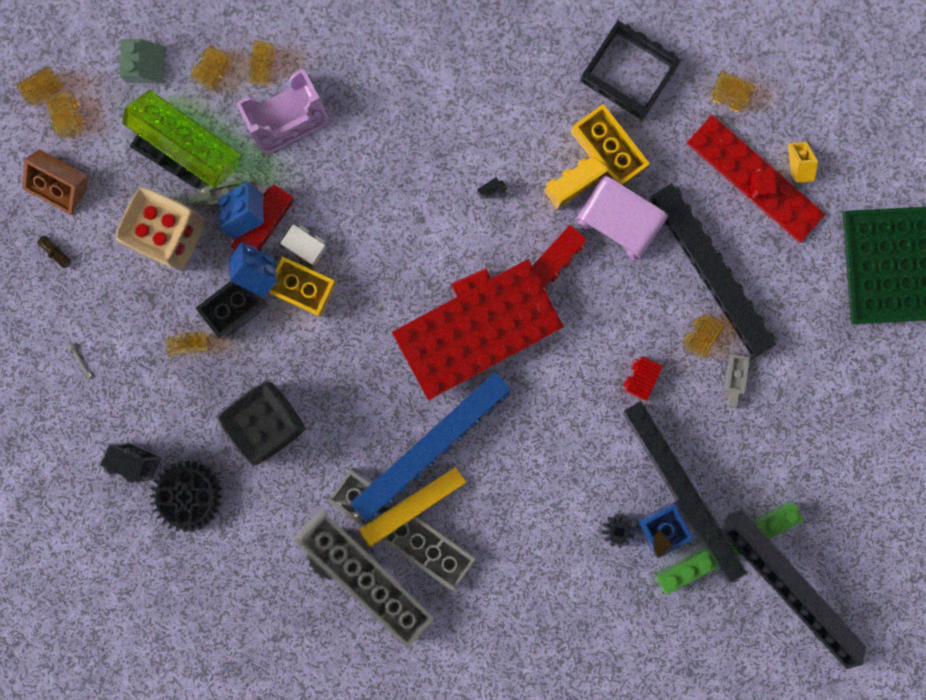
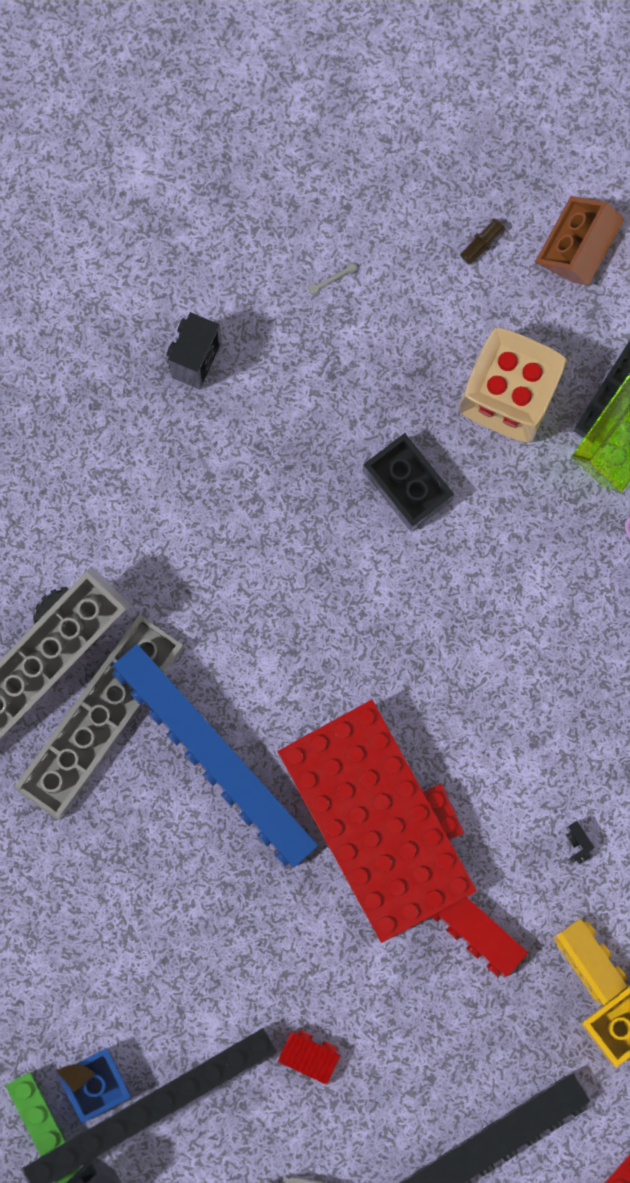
camera: 90 degrees right, 5 degrees down
(186, 343) = (356, 420): clear yellow slope -> none
(186, 488) = (158, 428): black gear -> none
(210, 195) = (567, 471): light grey hinge -> none
(240, 210) = (540, 492): blue brick -> none
(252, 269) = (457, 509): blue brick -> none
(261, 423) = (247, 524): black piece -> none
(275, 206) = (525, 521): red brick -> none
(302, 287) = (435, 576): yellow brick -> none
(304, 245) = (495, 578): white brick -> none
(412, 507) = (131, 730): yellow tile -> none
(615, 537) = (84, 1018): black gear -> none
(622, 216) = (538, 1027): lavender windscreen -> none
(702, 336) = (369, 1145): clear yellow brick -> none

